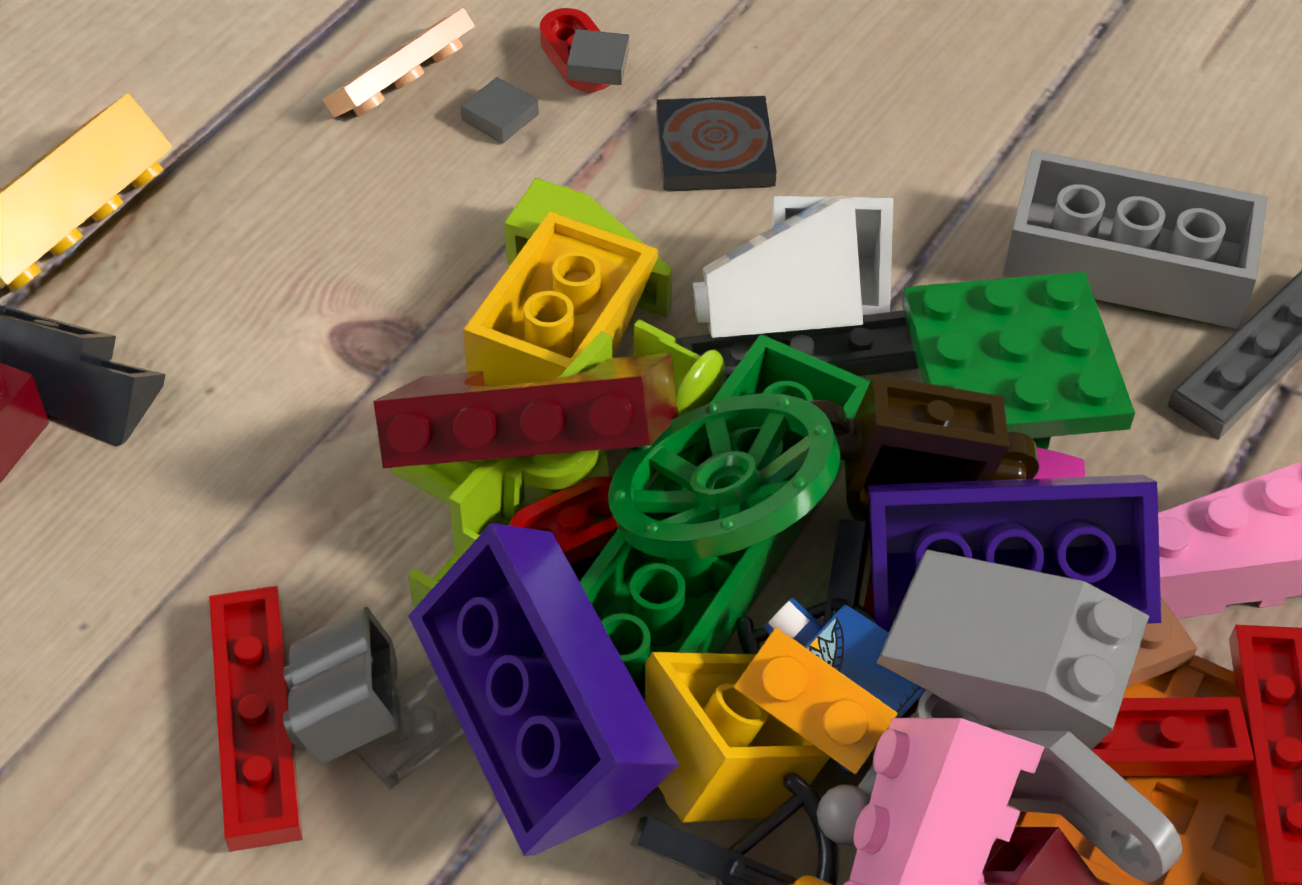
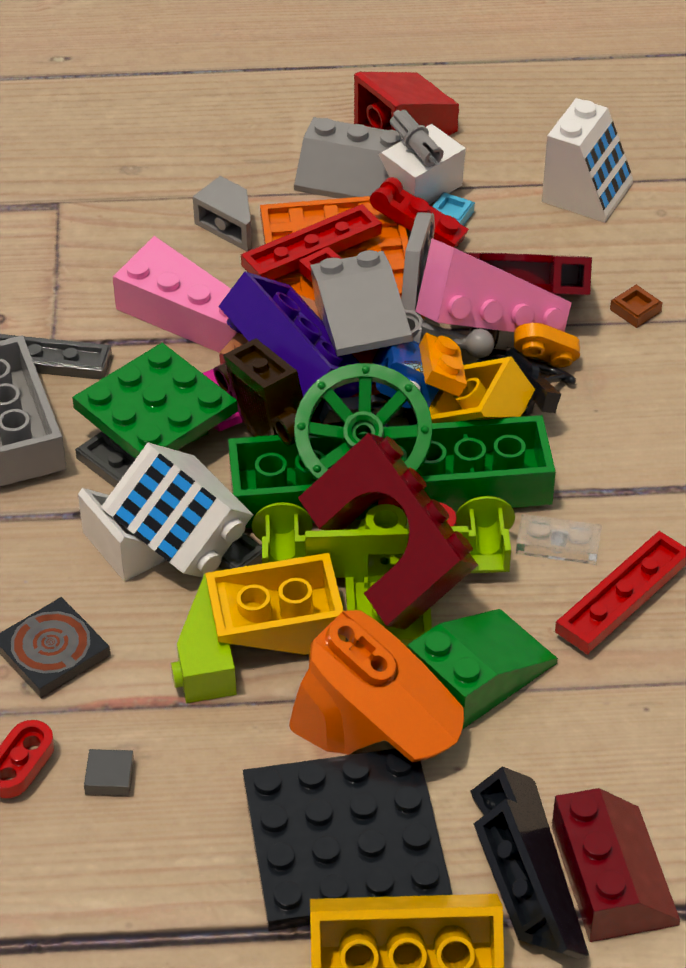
camera: 125 degrees left, 5 degrees down
(228, 243) = (342, 832): none -> black plate
(308, 478) = (482, 659): none -> green slope
(335, 318) = (372, 694): none -> orange piece
(341, 687) = (585, 549): dark grey brick -> none
(400, 66) = (115, 844): light nougat plate -> none
(539, 688) = (534, 441): dark purple slope -> none
(598, 57) = (36, 720): dark grey tile -> none

